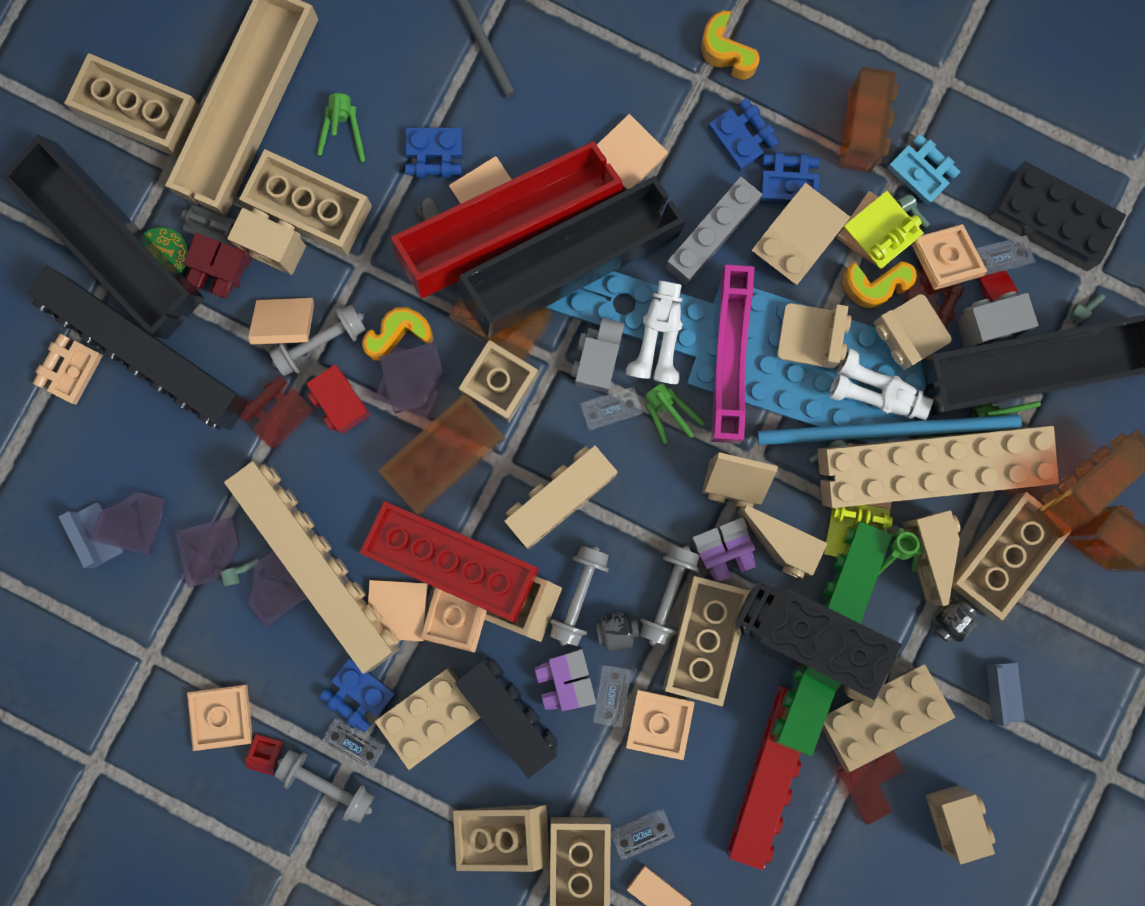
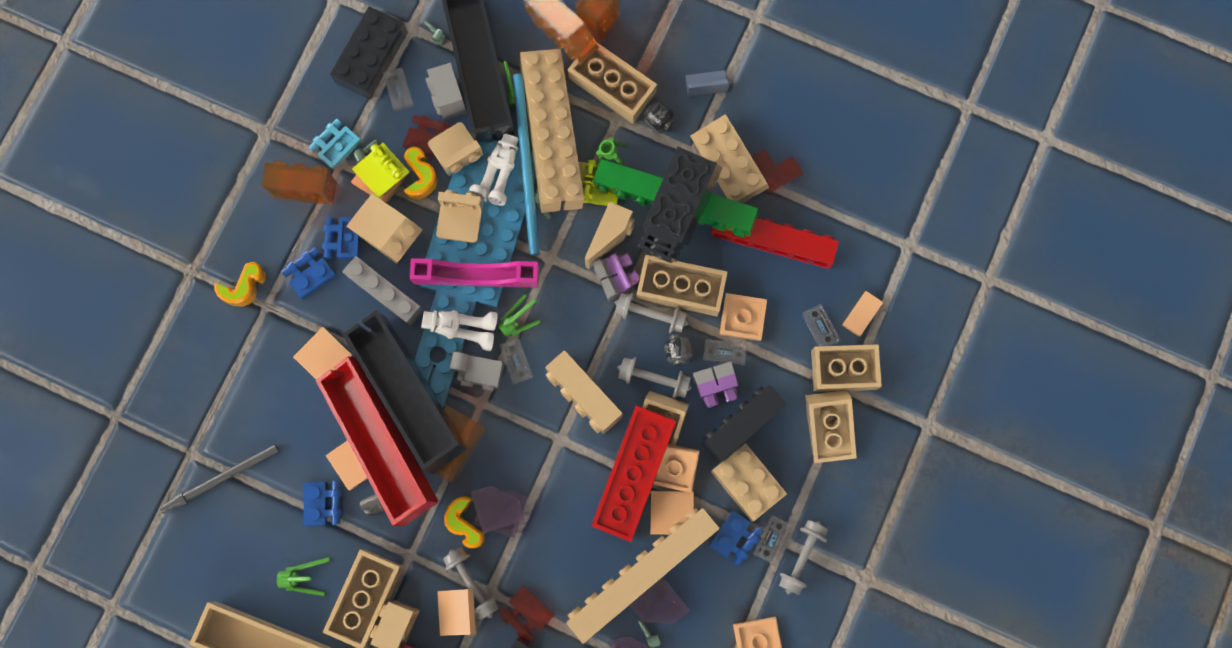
camera: 90 degrees left, 5 degrees down
(264, 754) = (783, 606): red slope -> none
(337, 399) = (515, 565): red brick -> none
(442, 454) = (555, 482): clear orange brick -> none
(499, 381) = (499, 443): tan brick -> none
(738, 480) = (566, 266): tan slope -> none
(937, 563) = (622, 128): tan slope -> none
(948, 257) = (399, 125): light nougat tile -> none
(961, 824) = (797, 110): tan brick -> none
(996, 285) = (420, 92): red slope -> none

